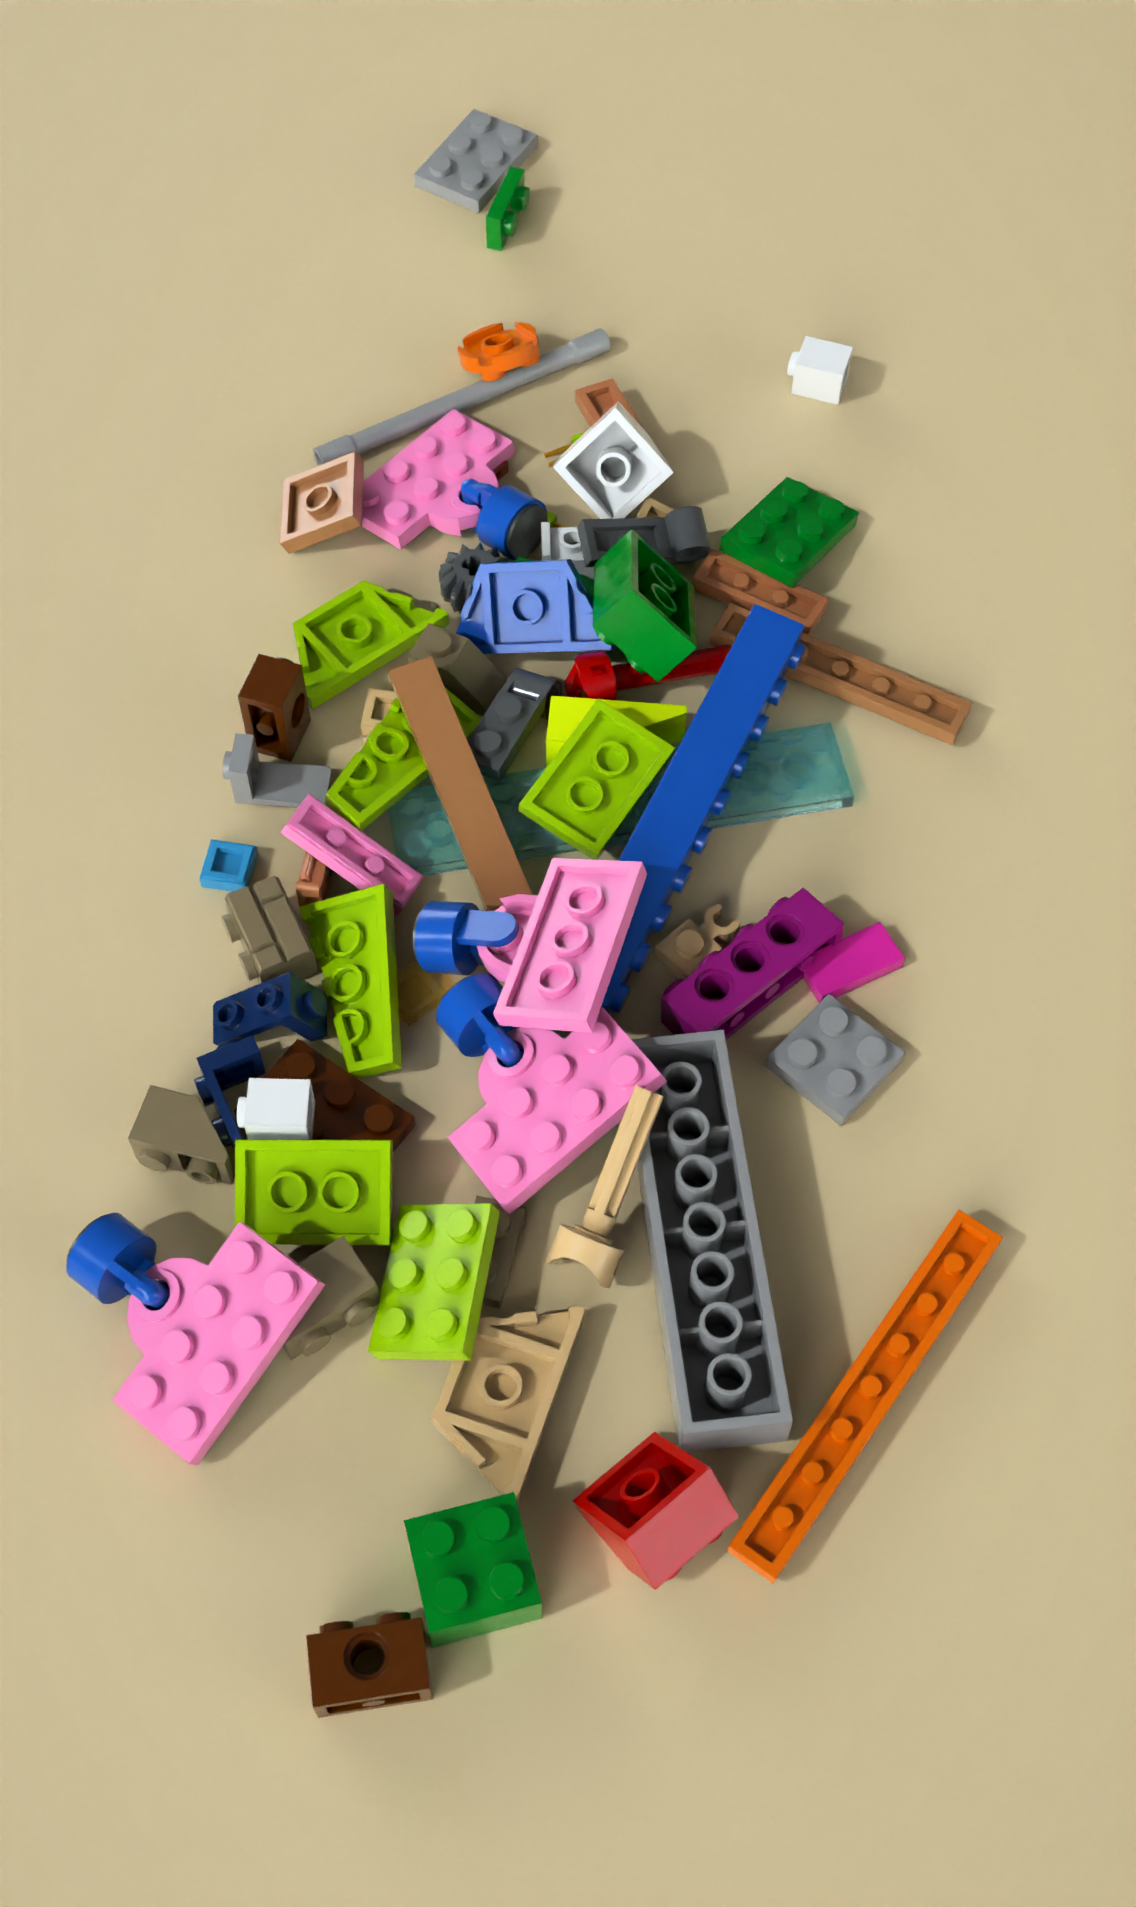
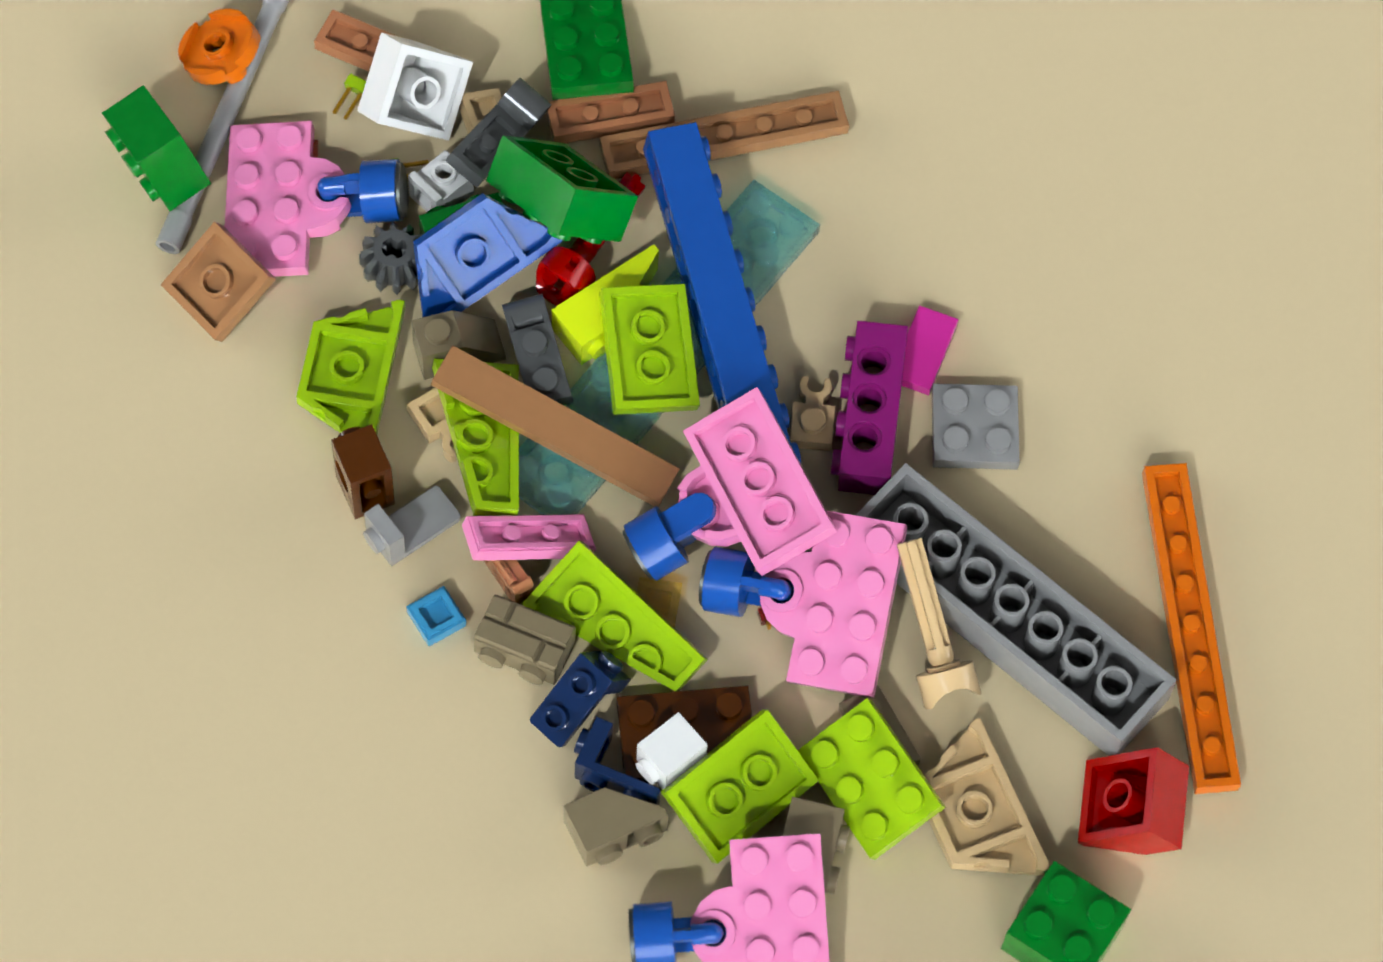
camera: 45 degrees left, 5 degrees up
(367, 375) = (154, 149): none -> green brick

